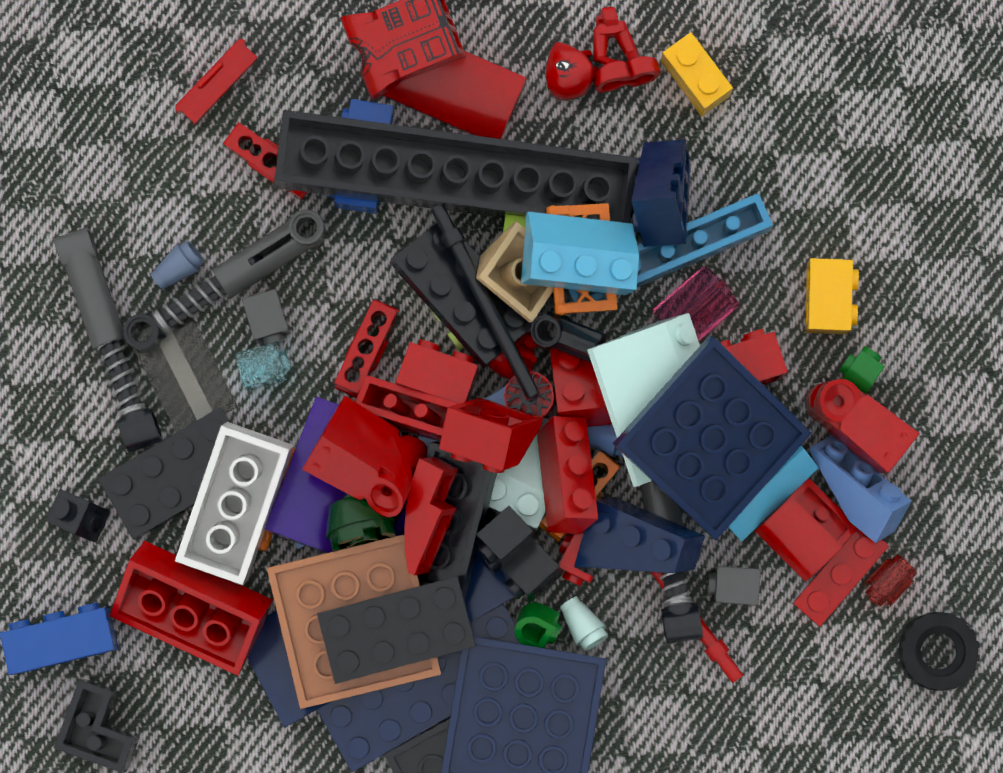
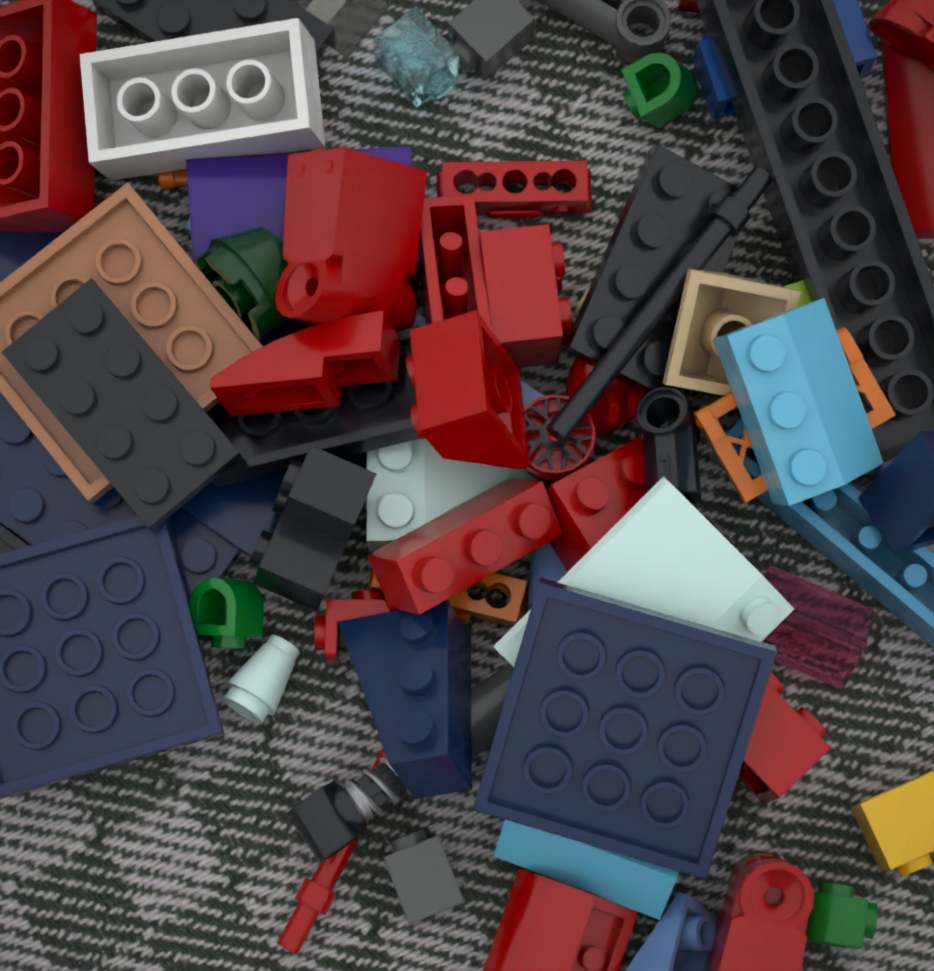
camera: 60 degrees right, 5 degrees down
(349, 237) = (659, 89): none -> green plate

